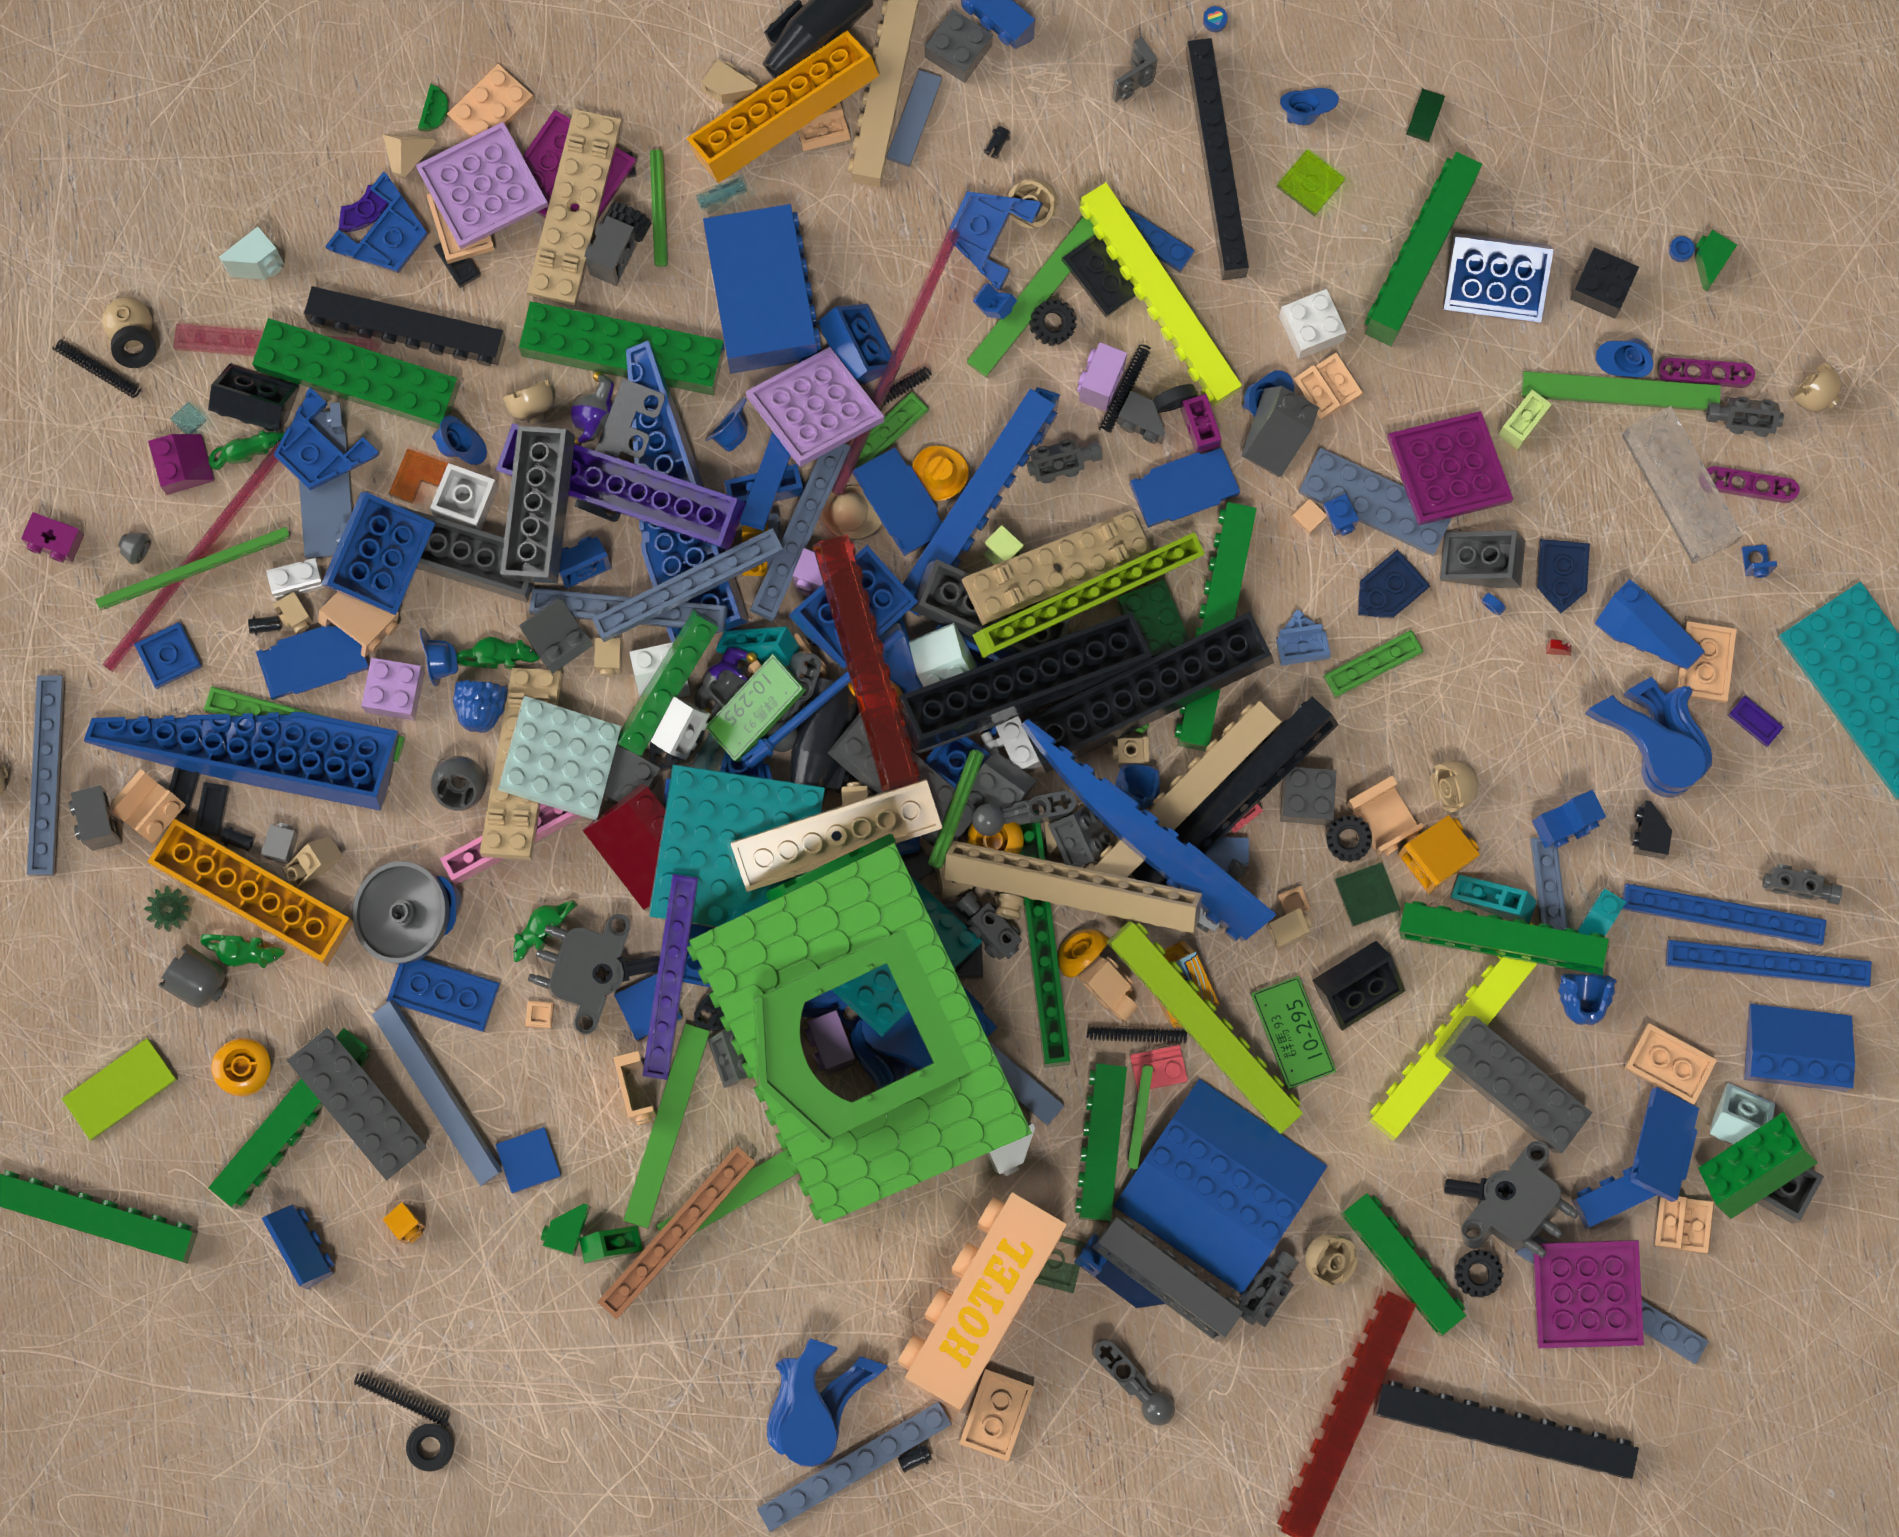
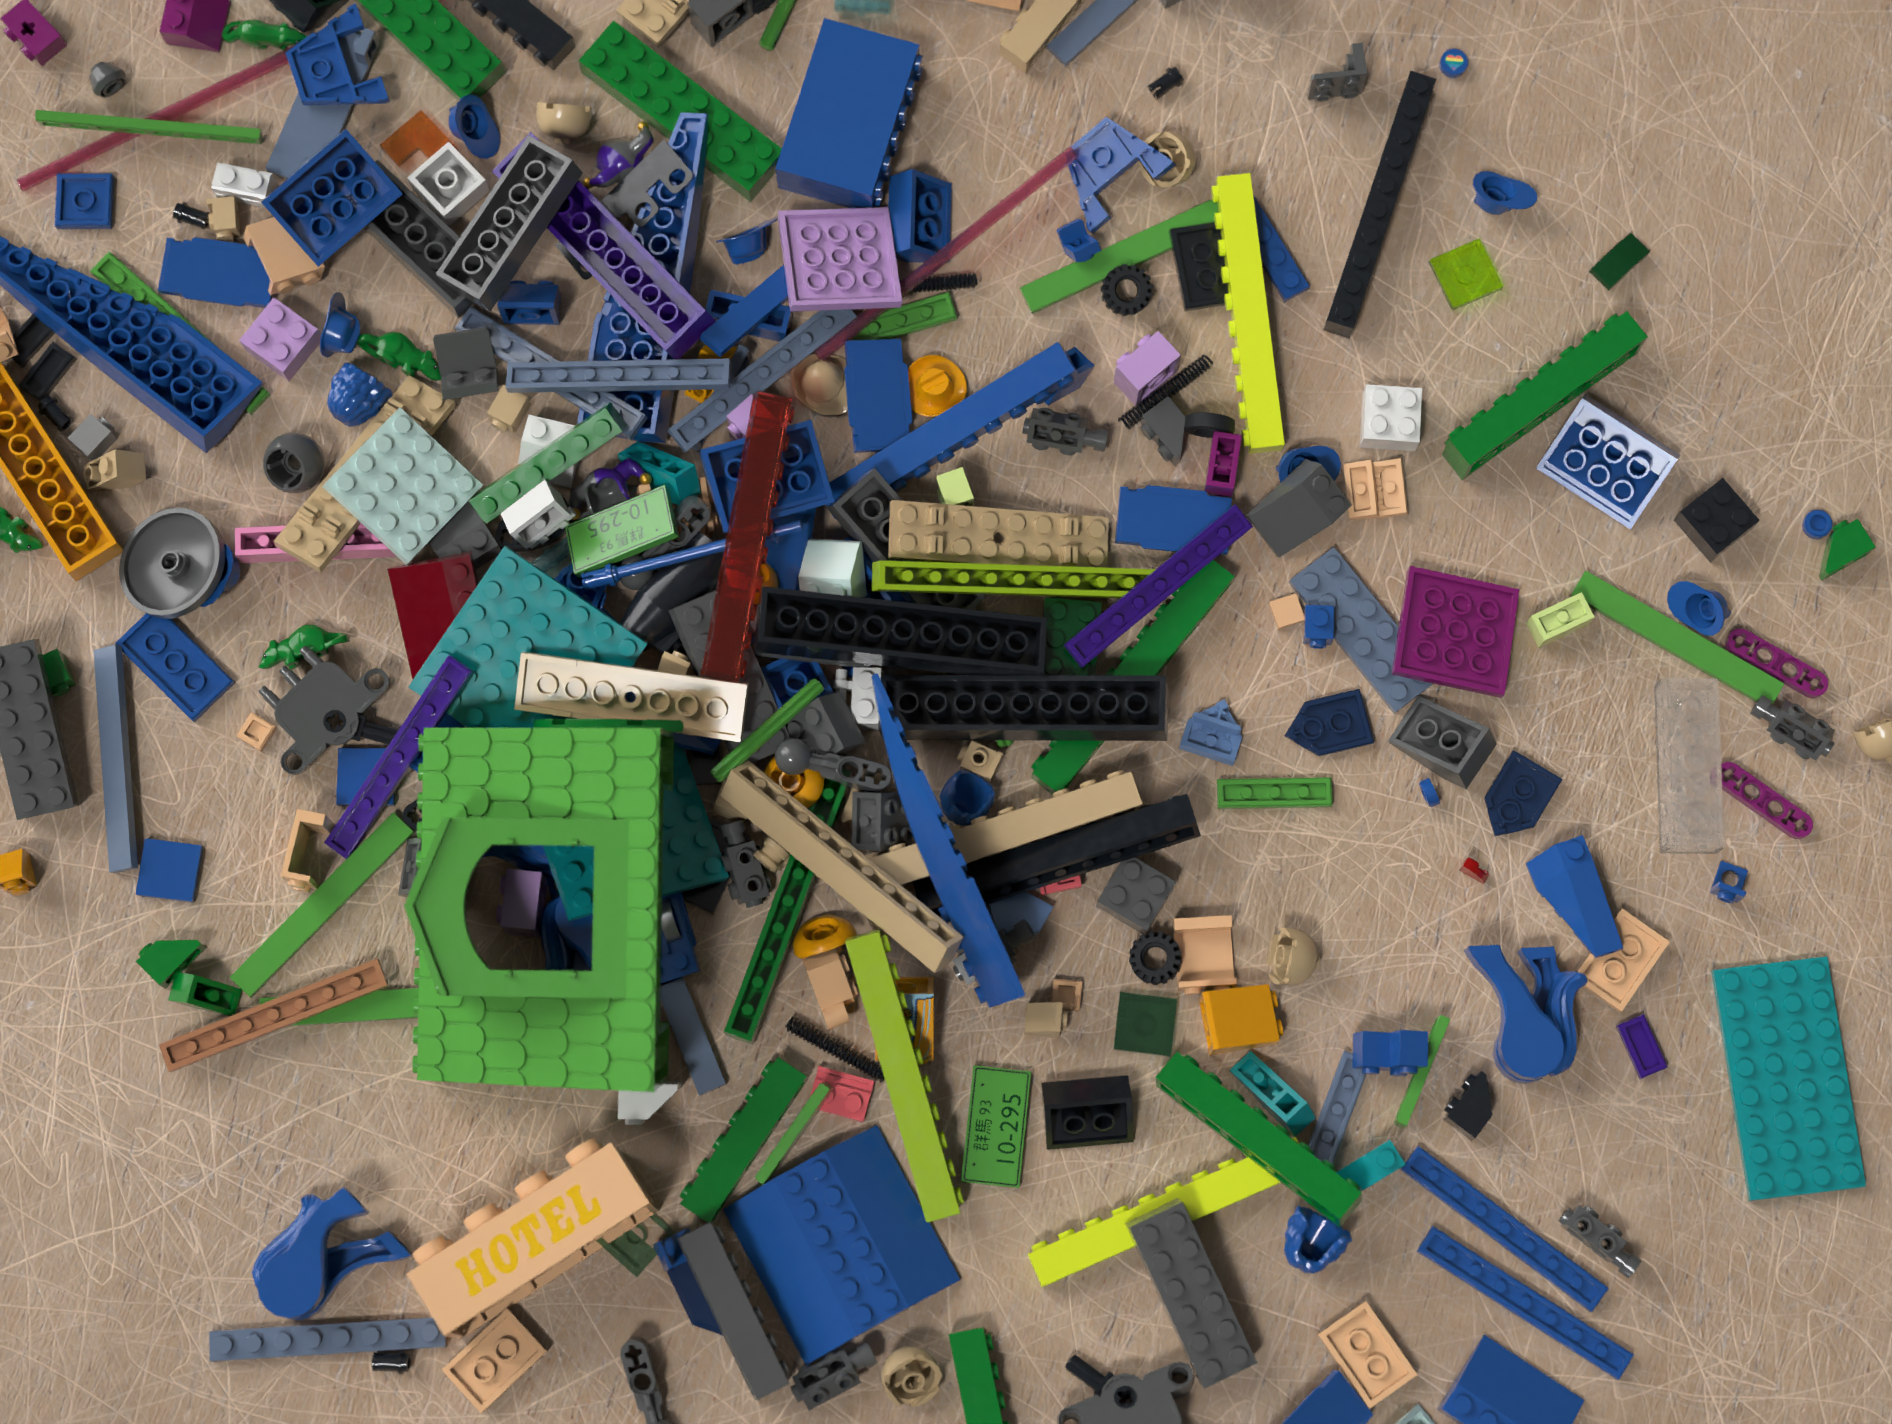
camera: 30 degrees right, 0 degrees up
(1202, 544) = (1158, 586): none -> dark purple tile
(1600, 835) = (1418, 1080): none -> bright green tile

